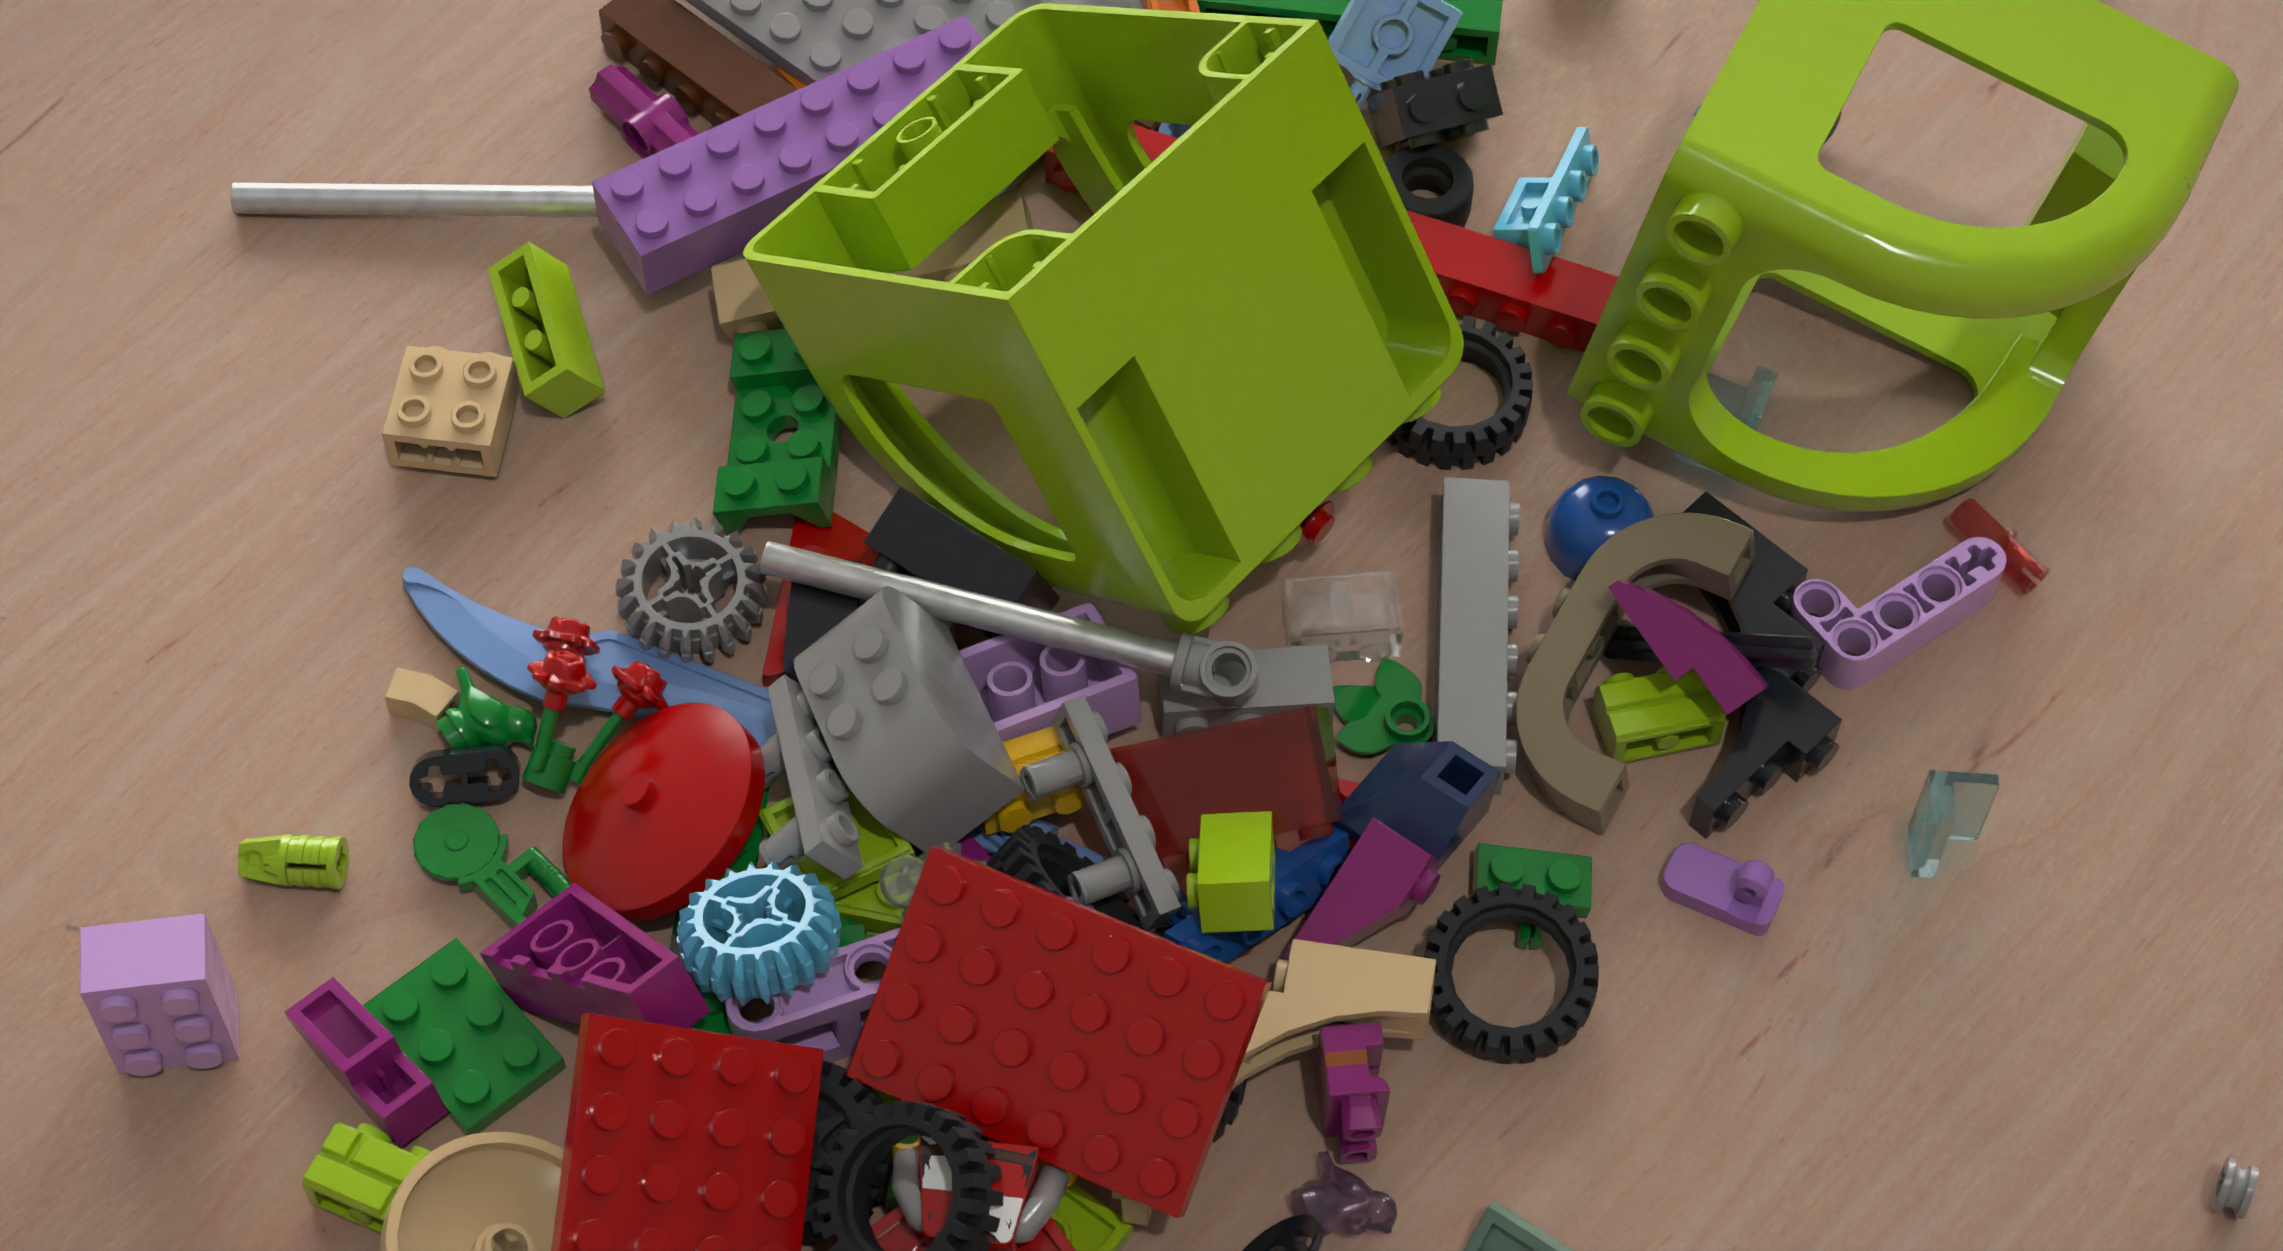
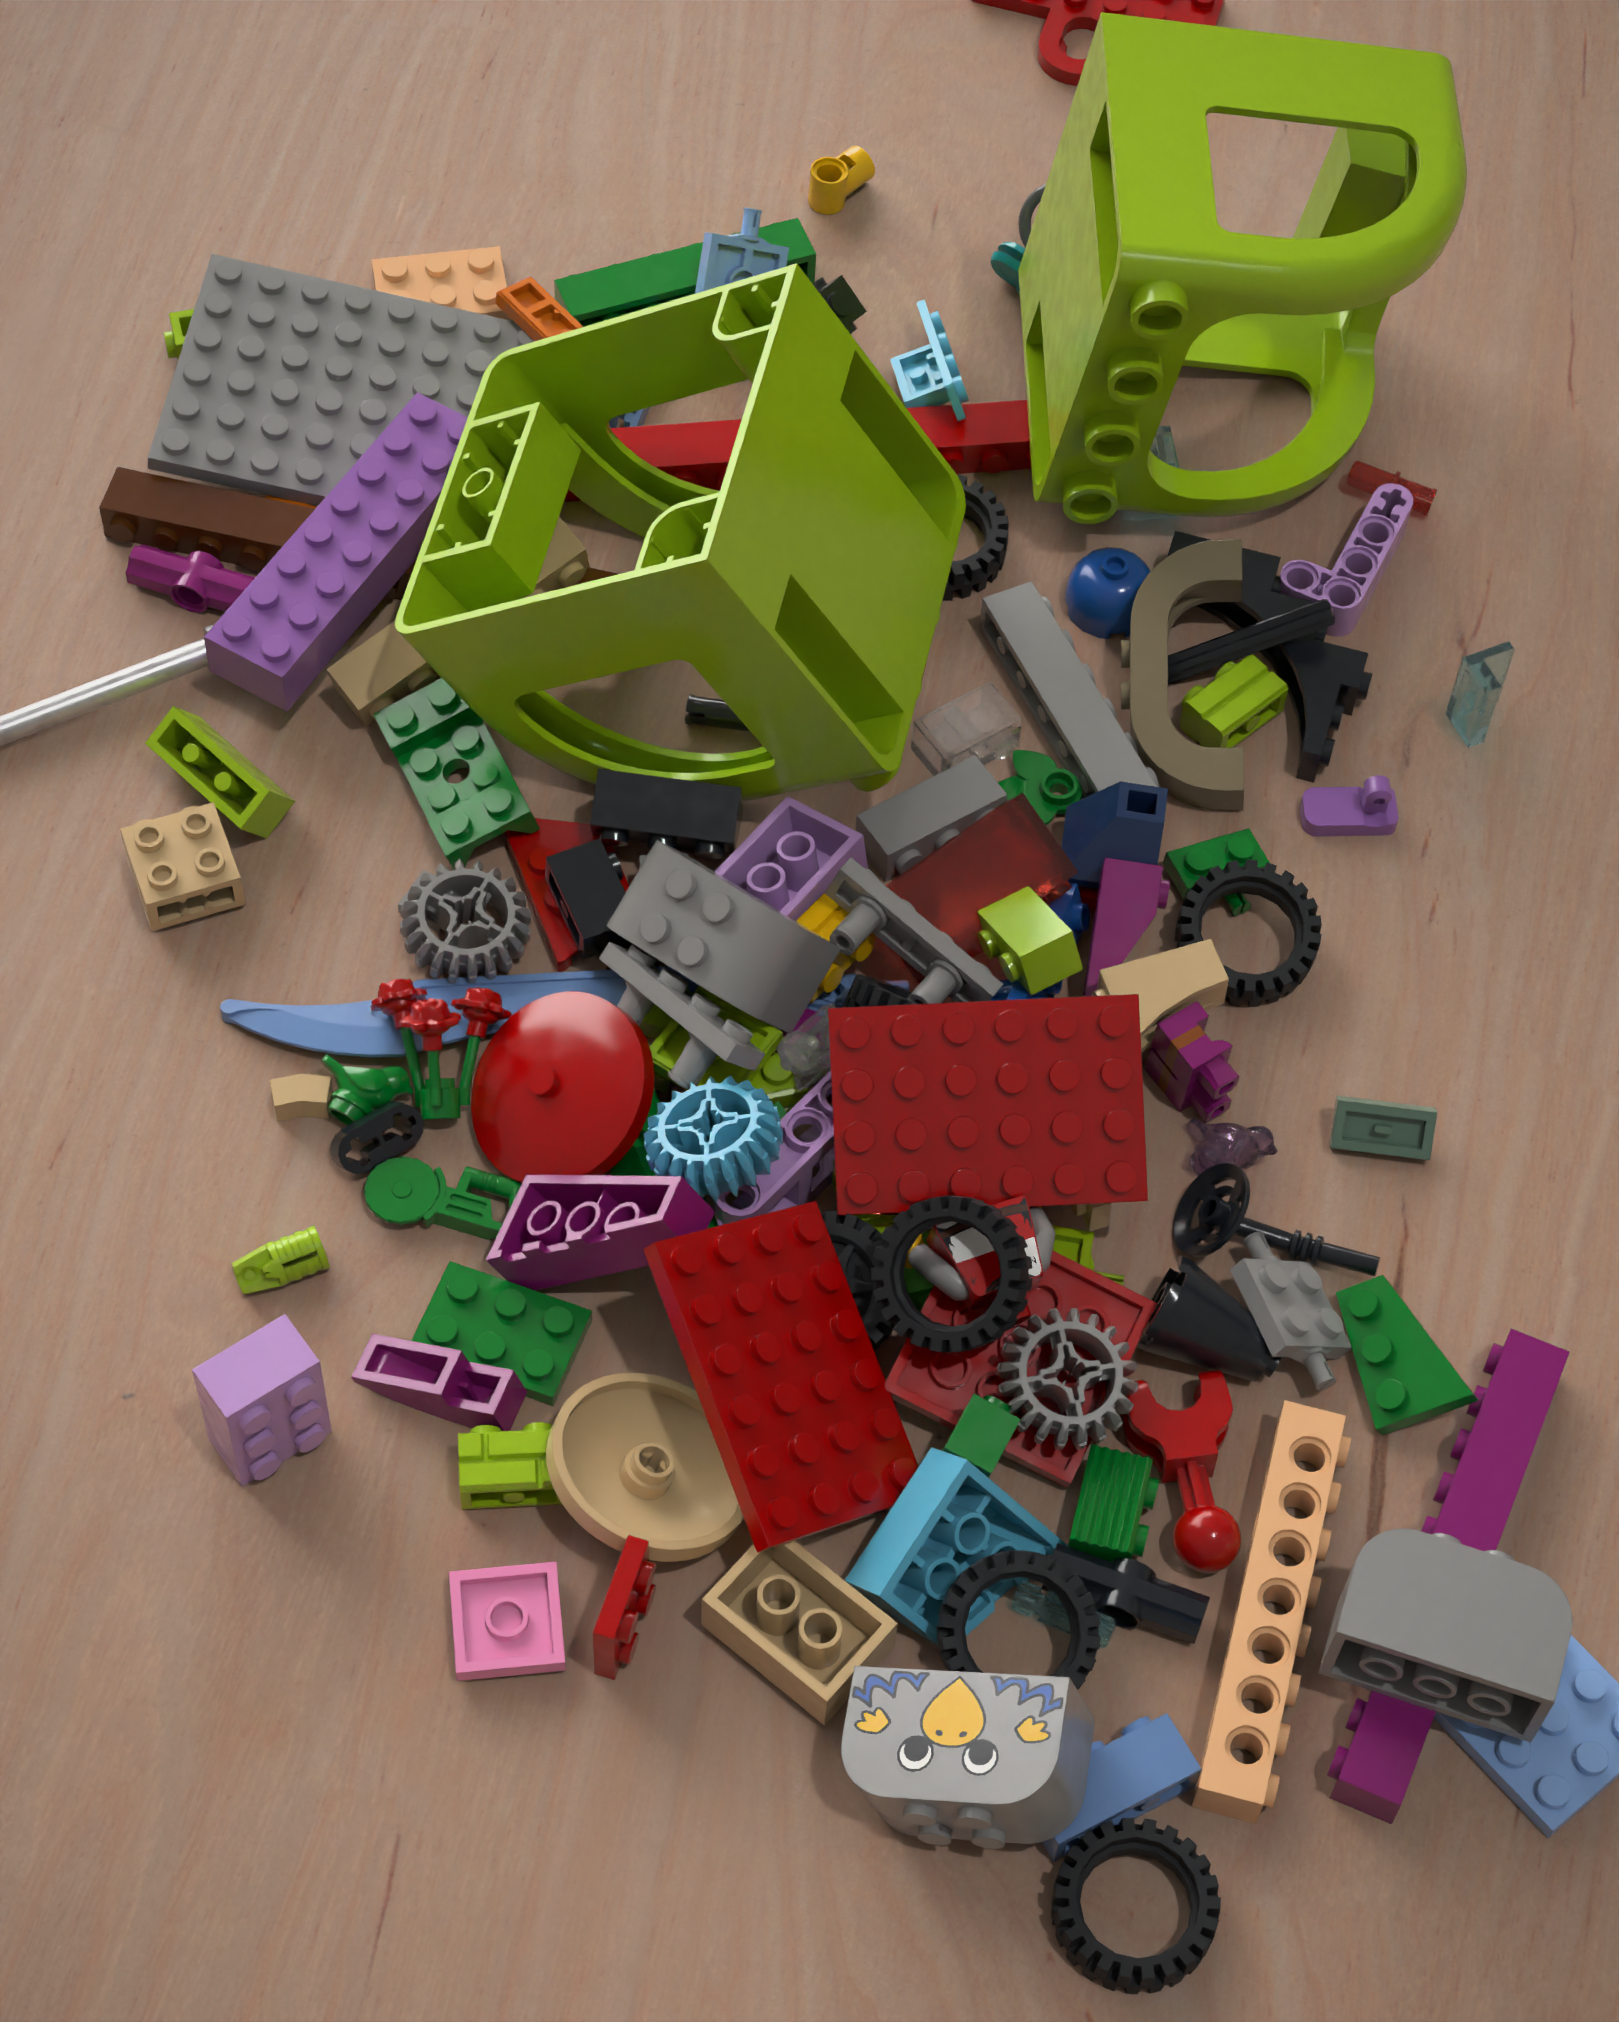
camera: 30 degrees left, 0 degrees up
(1188, 663) = (896, 807): flat silver piece -> none
(1688, 643) = (1244, 641): magenta slope -> none

